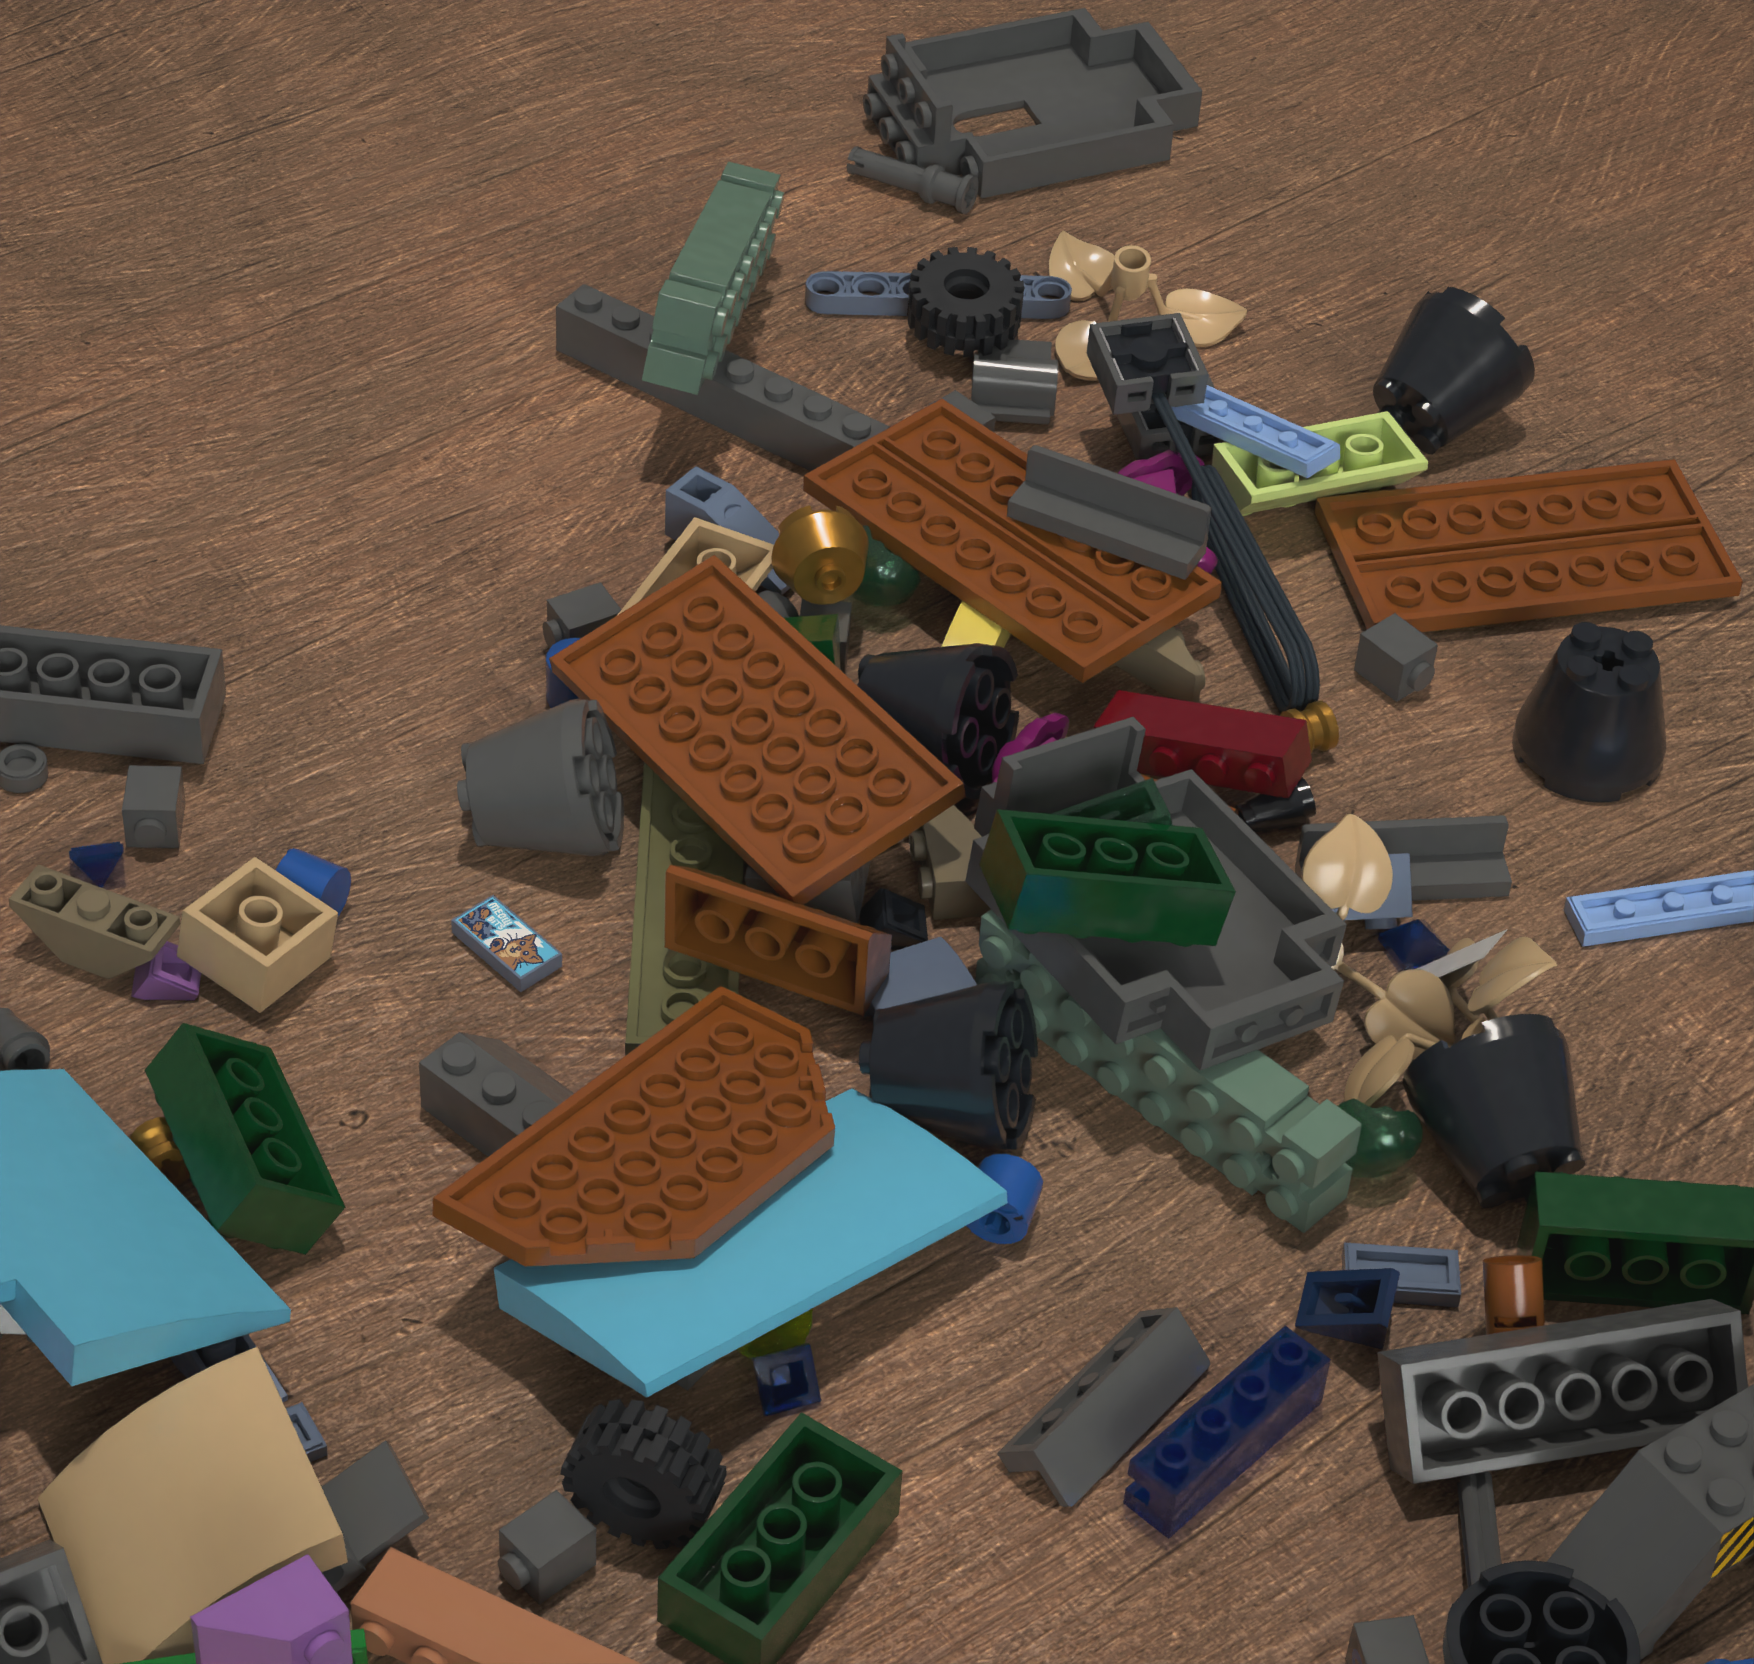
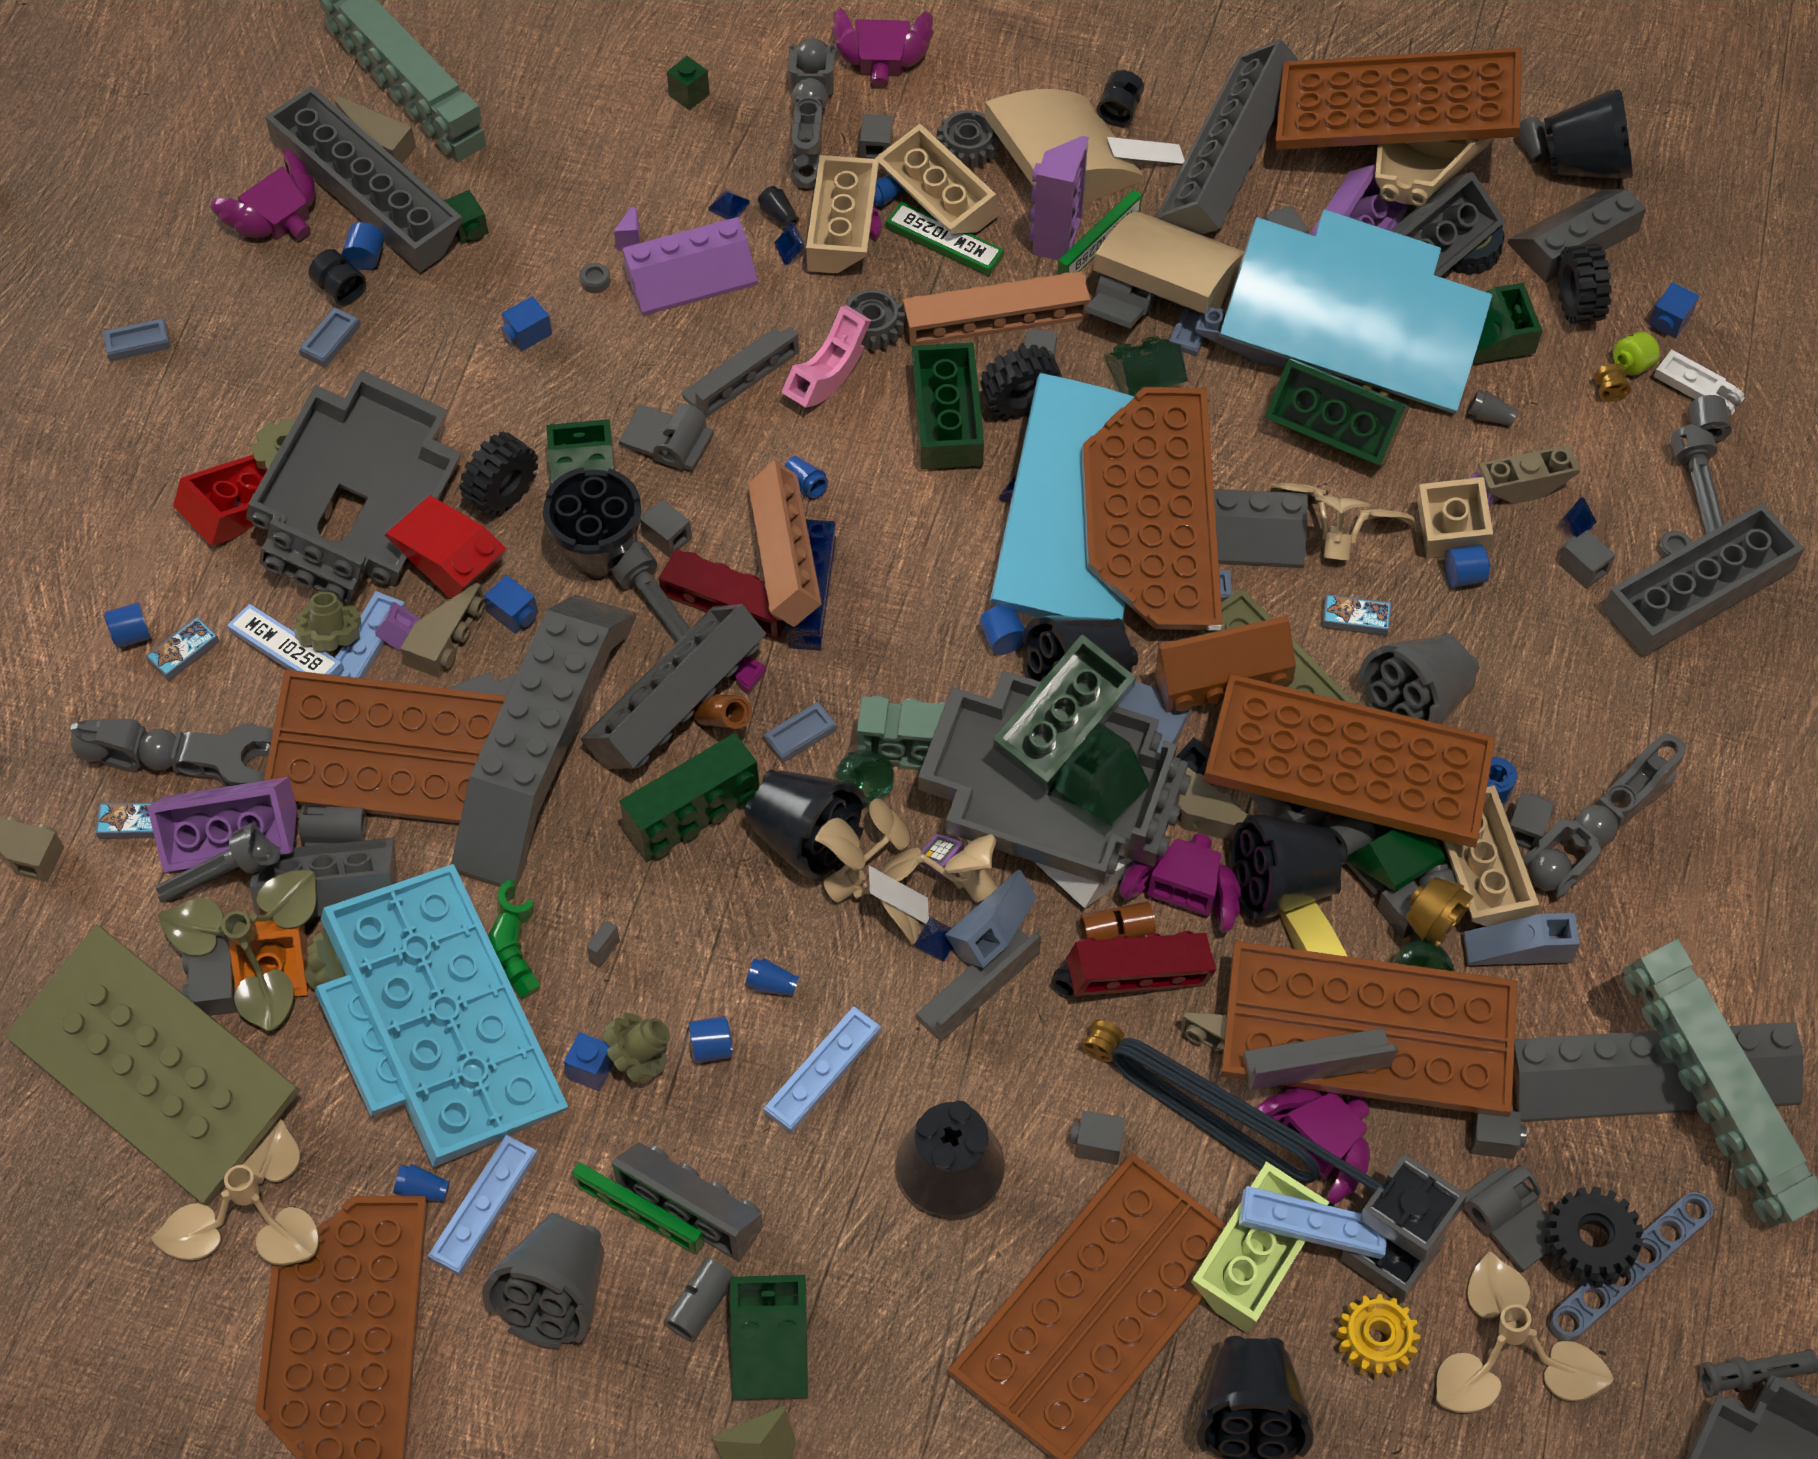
camera: 145 degrees right, 15 degrees up
(415, 1405) = (1150, 364): none -> clear green slope
(435, 942) = (1338, 539): none -> tan plant
(472, 562) = (1599, 823): none -> dark grey piece
(1093, 1605) = (810, 478): none -> blue cone
(1108, 1404) = (877, 570): dark grey panel -> none
(1241, 1467) = (784, 544): none -> nougat brick
(1258, 371) = (1374, 1355): none -> yellow gear
(1345, 1030) = (941, 850): none -> slope
(1349, 1304) = (802, 683): dark blue slope -> none
(1368, 1508) = (710, 584): none -> dark red brick
(1674, 1019) = (771, 978): none -> blue cone

